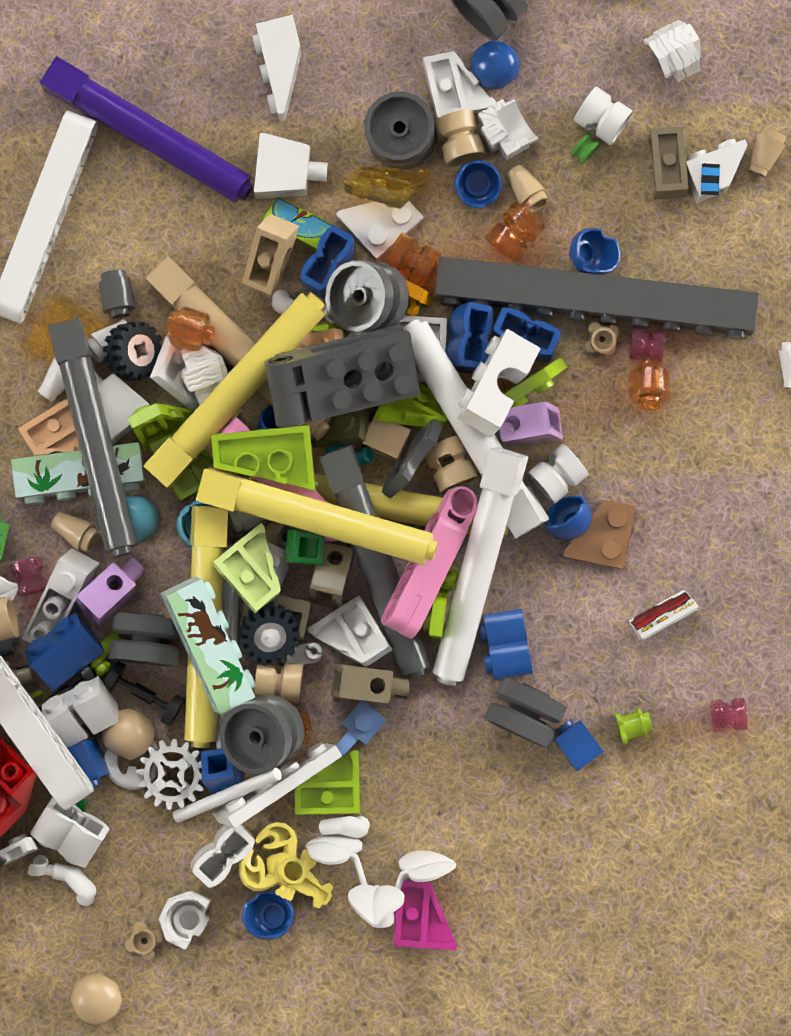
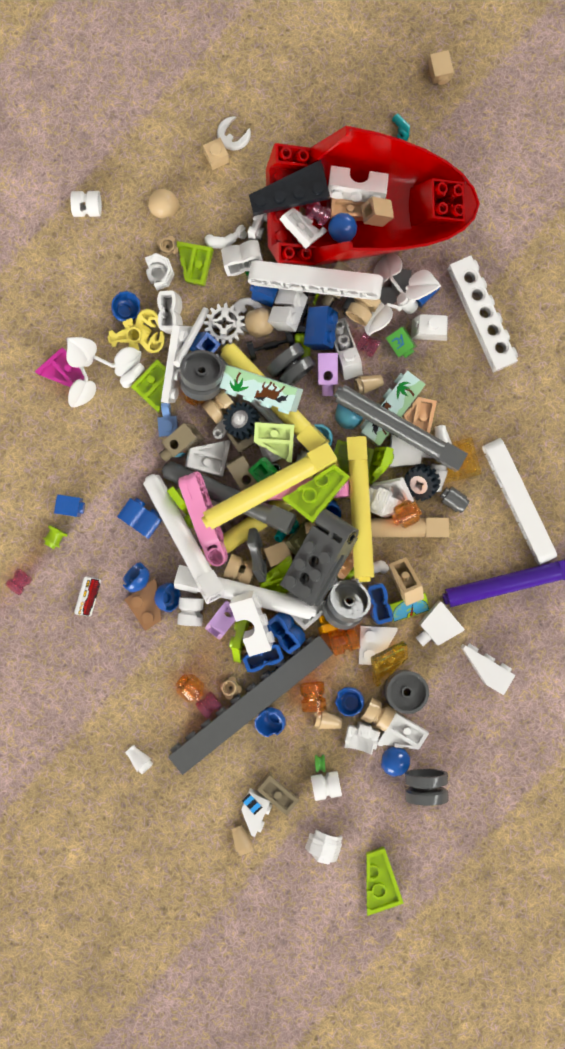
camera: 130 degrees right, 5 degrees up
(130, 886) = (195, 262): none -> lime wing
(525, 713) = (102, 496): dark grey wheel -> none
(582, 578) = (136, 577): none -> blue hair

